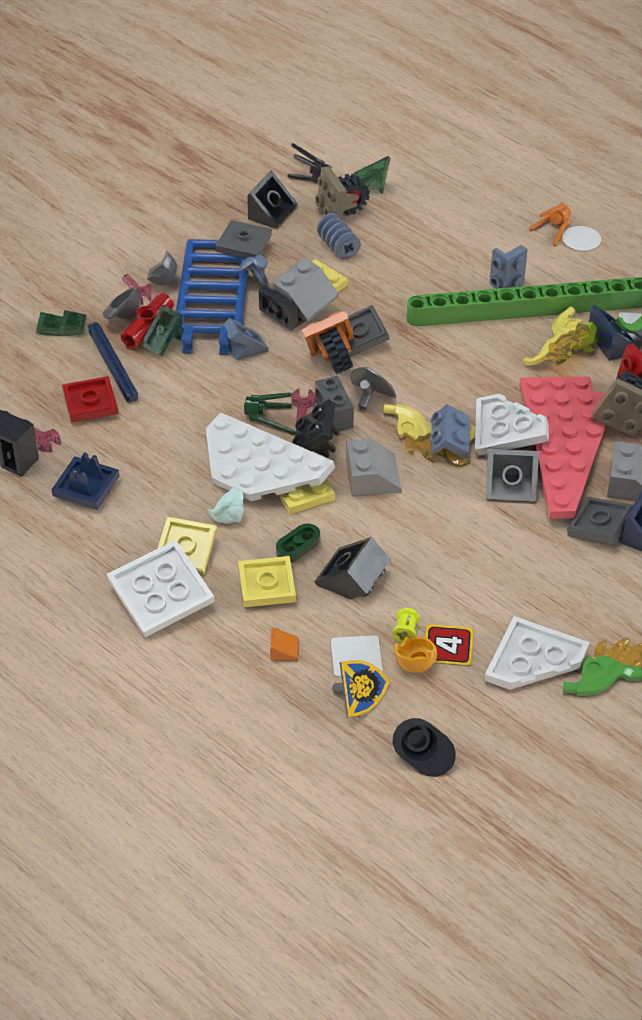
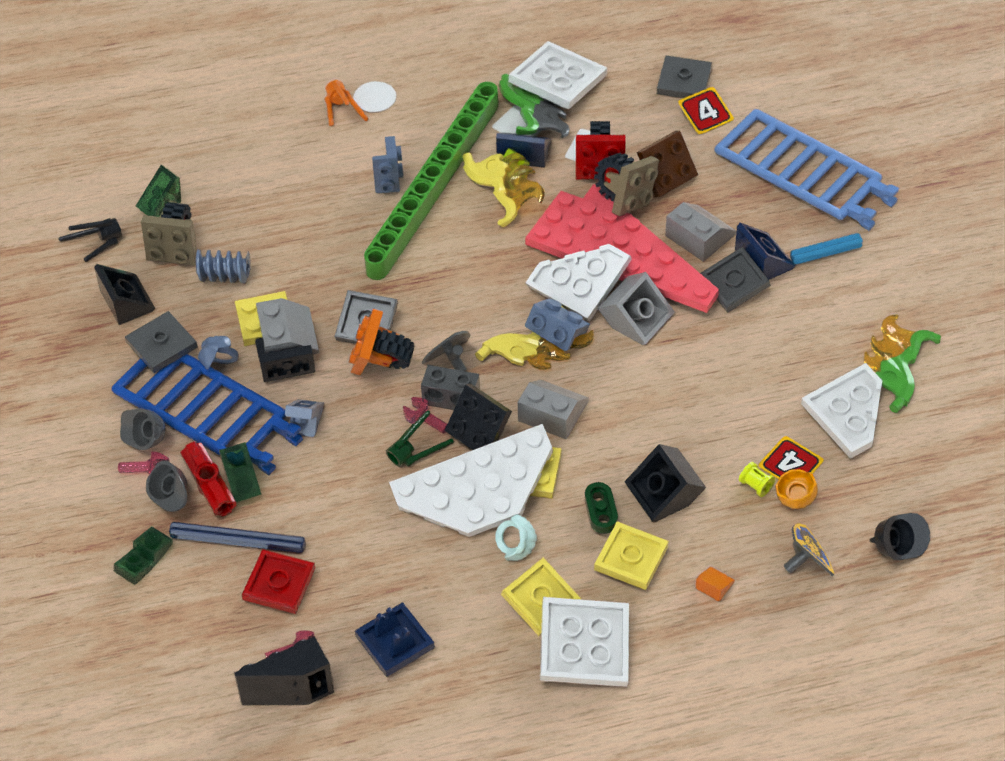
camera: 55 degrees left, 5 degrees up
(356, 648) = (758, 535): white sticker -> none

